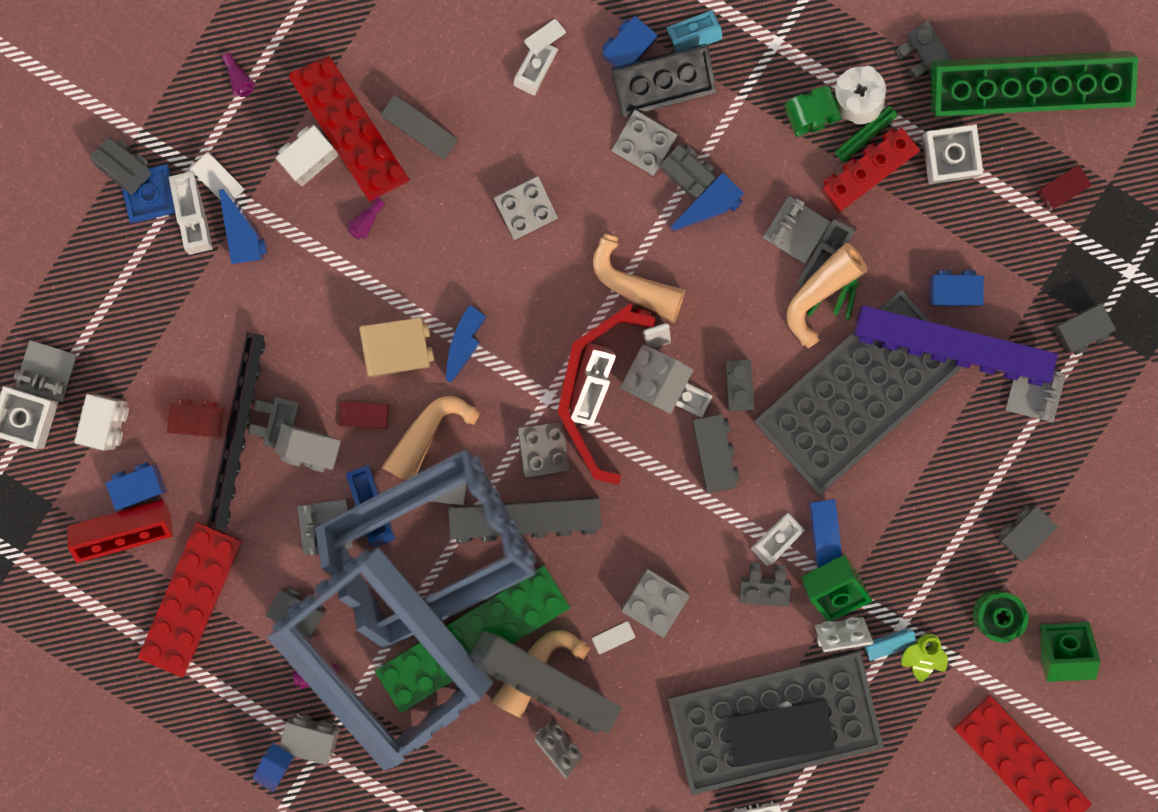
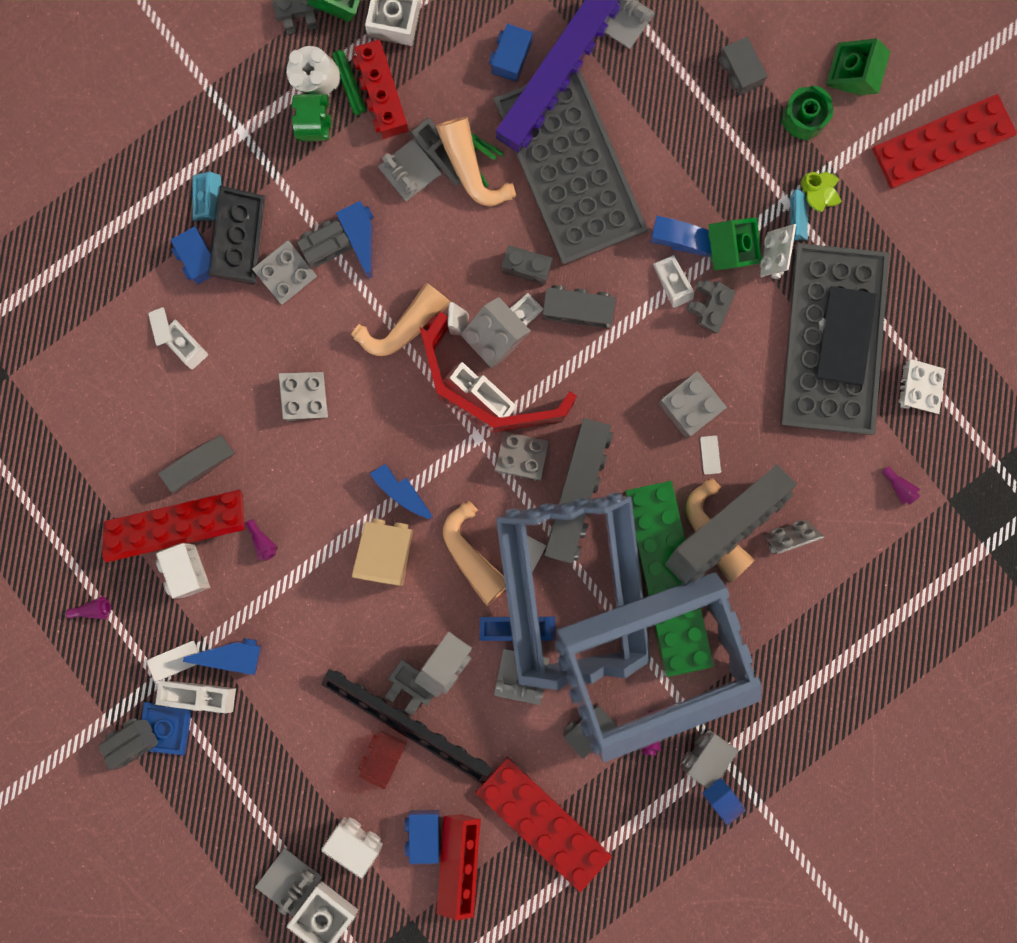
camera: 70 degrees left, 5 degrees down
(363, 415) = (433, 605): dark red slope -> none

